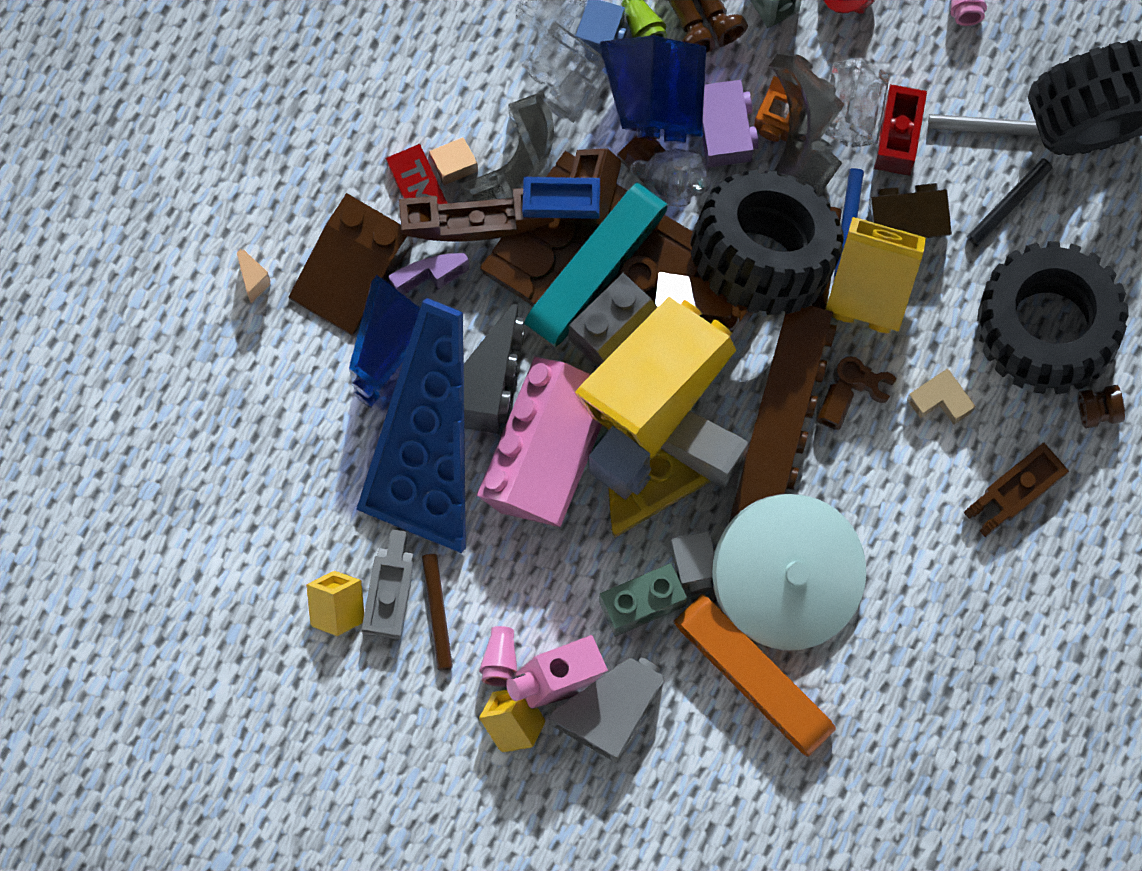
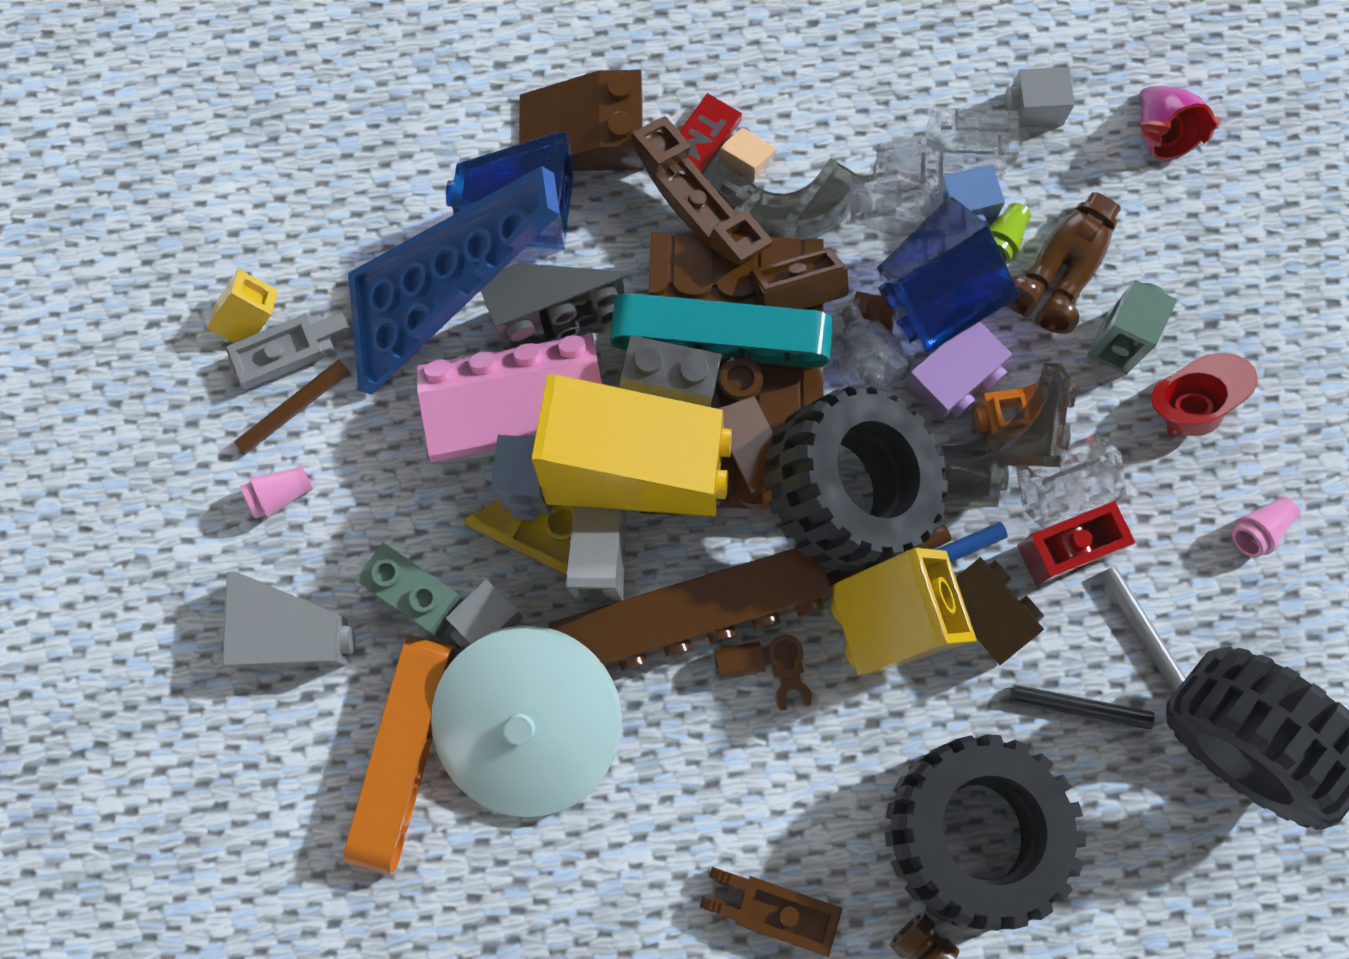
camera: 60 degrees right, 0 degrees up
(254, 275) = (514, 48): light nougat slope -> none
(440, 269) = (627, 200): lavender slope -> none
(511, 722) = (218, 540): yellow panel -> none
(558, 673) = (286, 561): bright pink torso -> none
(561, 197) = (764, 253): blue tile -> none
(943, 392) = (828, 762): tan piece -> none

